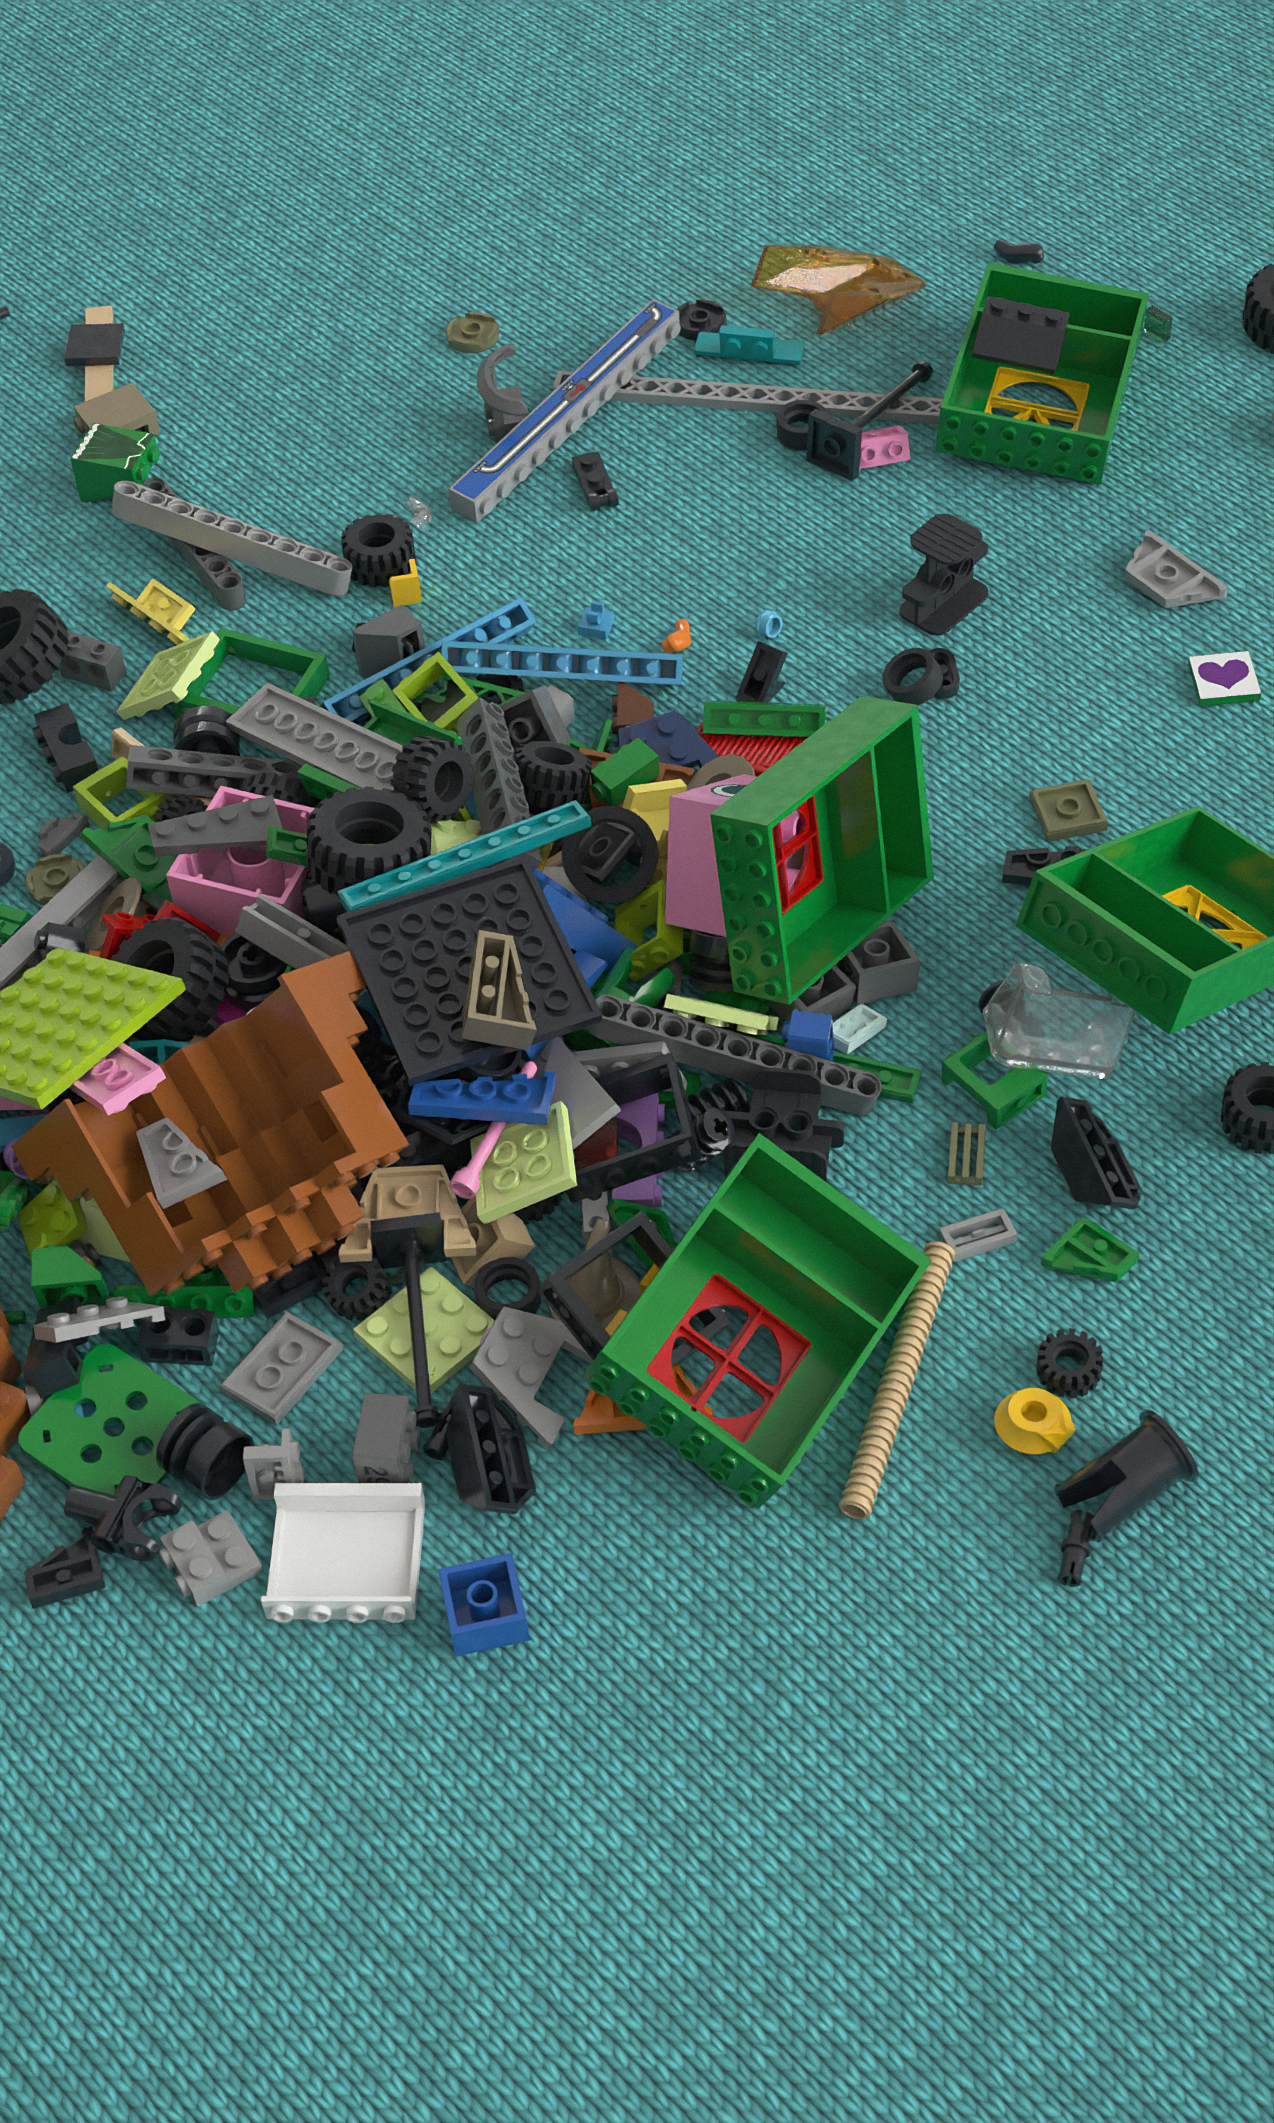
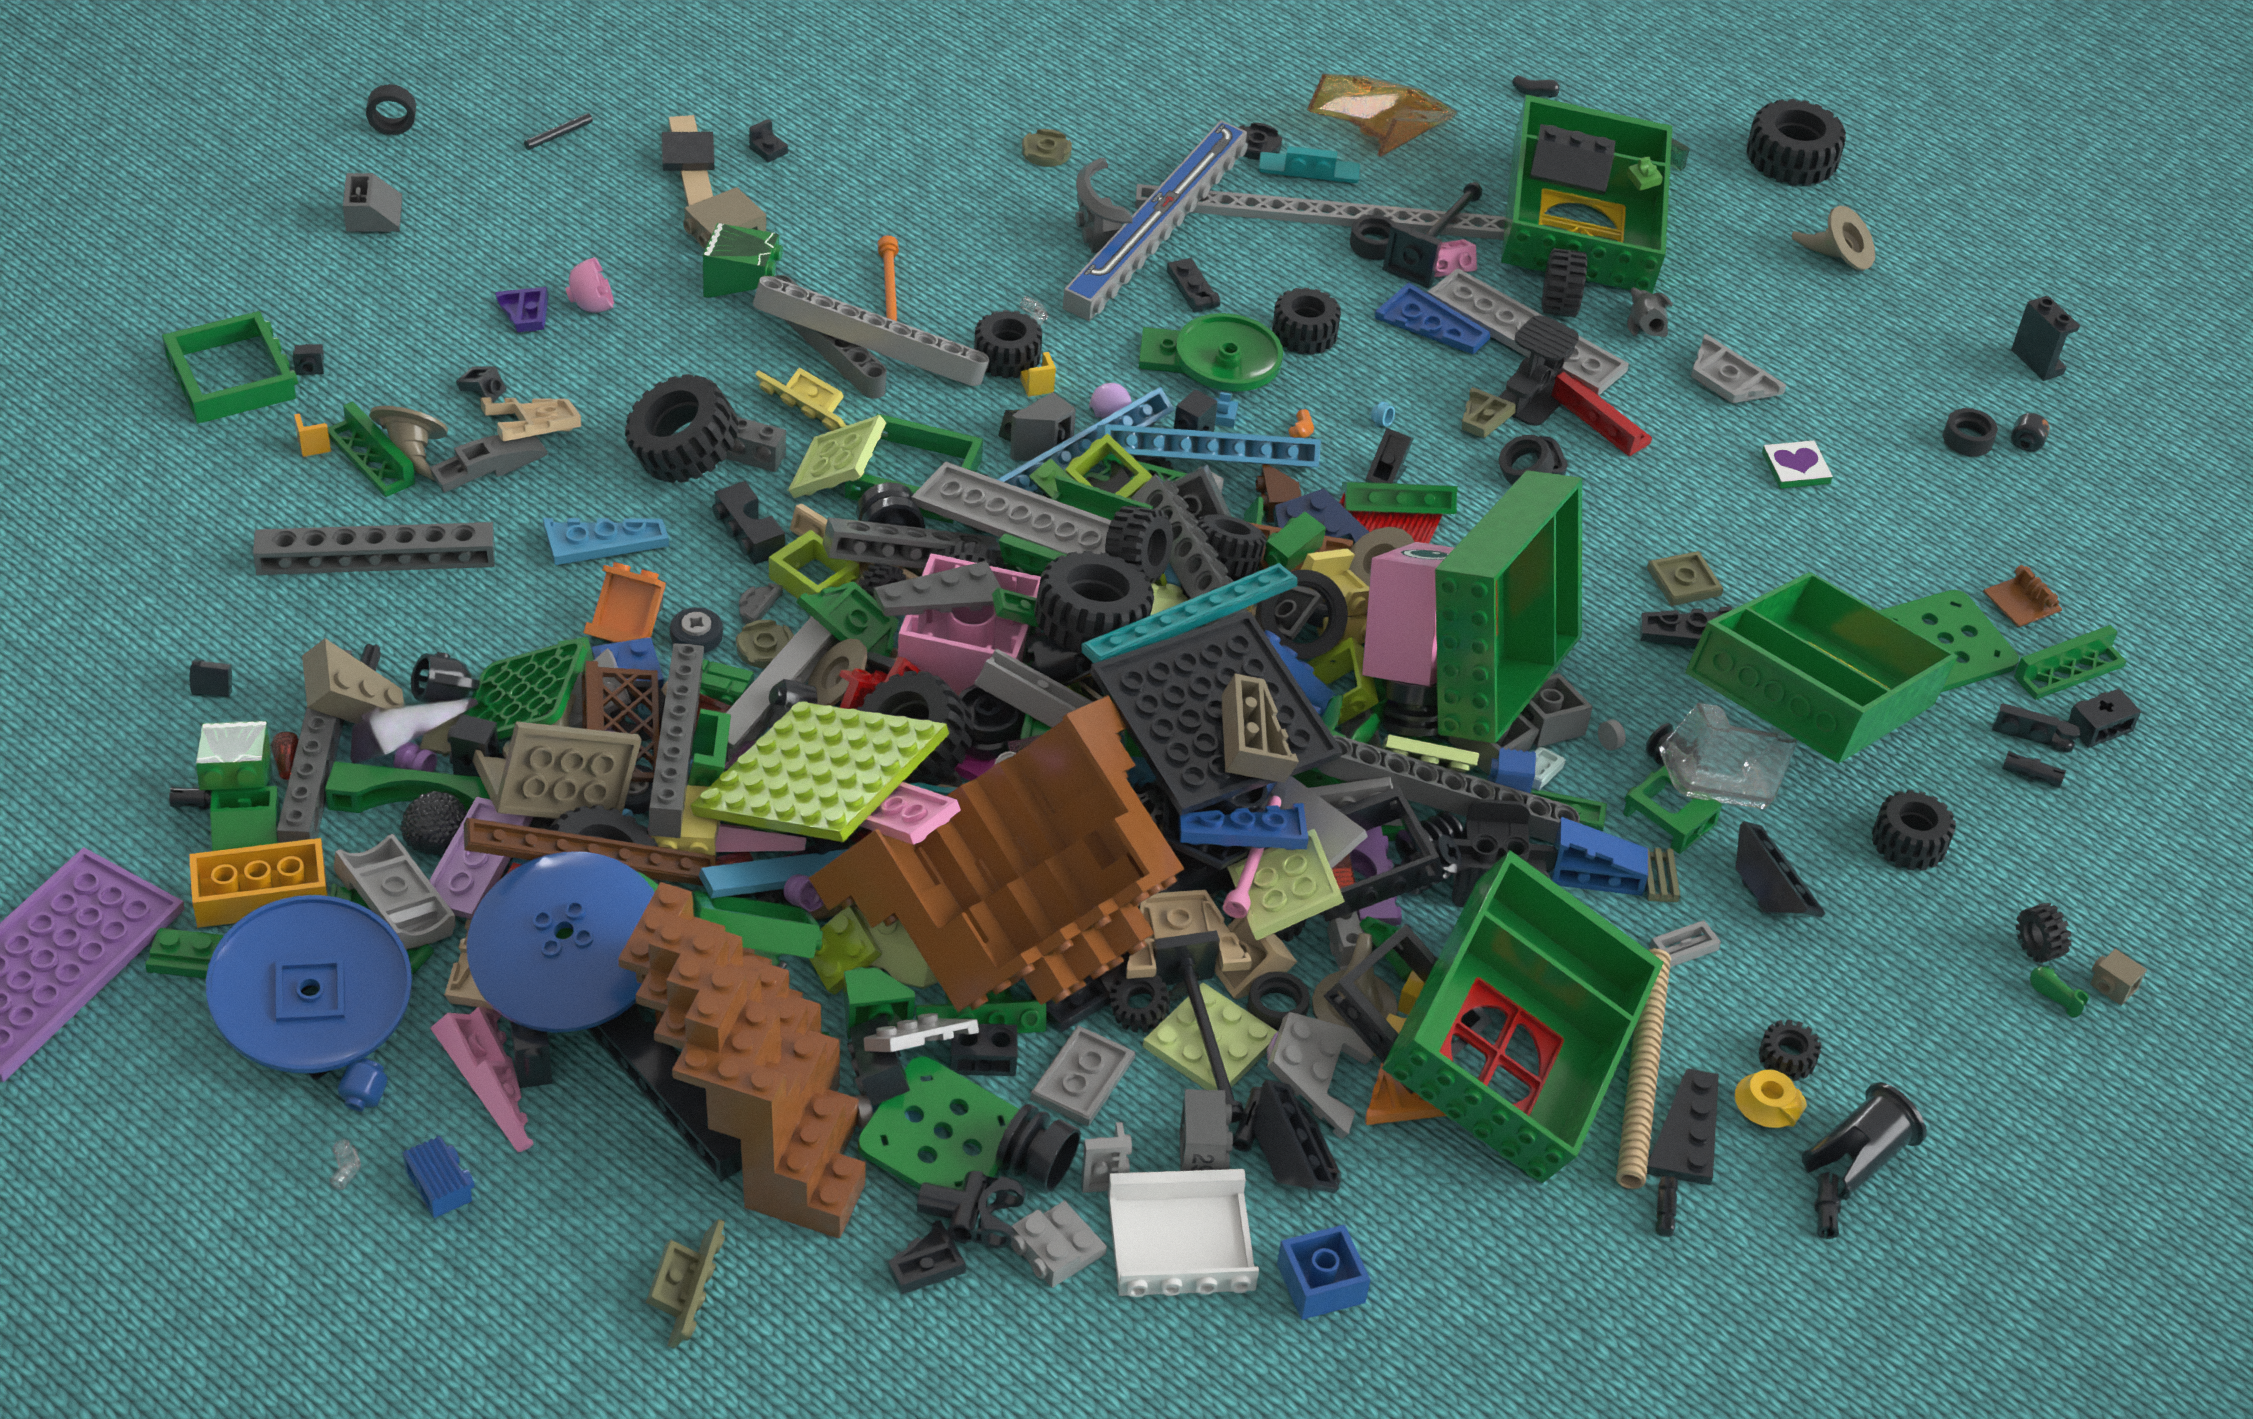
camera: 15 degrees left, 5 degrees down
(175, 1163) = (971, 888): light grey wing -> none
(179, 332) = (765, 143): none -> black bracket
(279, 447) = (888, 249): none -> orange piece
(473, 607) = (1109, 399): none -> lavender hair
(551, 554) = (1158, 350): none -> green plate
(554, 627) = (1196, 412): none -> black brick
(612, 556) = (1229, 352): none -> green dish
(704, 520) = (1306, 320): none -> black tyre
(846, 516) = (1430, 318): none -> blue wing
(882, 622) = (1485, 413): none -> olive wing
(891, 1541) = (1666, 1206): none -> black axle
(893, 1137) = (1598, 860): none -> blue wedge
(911, 503) = (1505, 316): none -> light grey plate
(933, 1459) = (1688, 1135): none -> black wing
(944, 991) = (1611, 734): none -> light grey tile
(994, 473) = (1564, 282): none -> black tyre
(1010, 622) = (1599, 415): none -> red fence
(1087, 507) = (1648, 313): none -> dark grey animal
(1090, 1253) = (1788, 956): green wing -> none
(1103, 350) = (1644, 174): none -> bright green tile

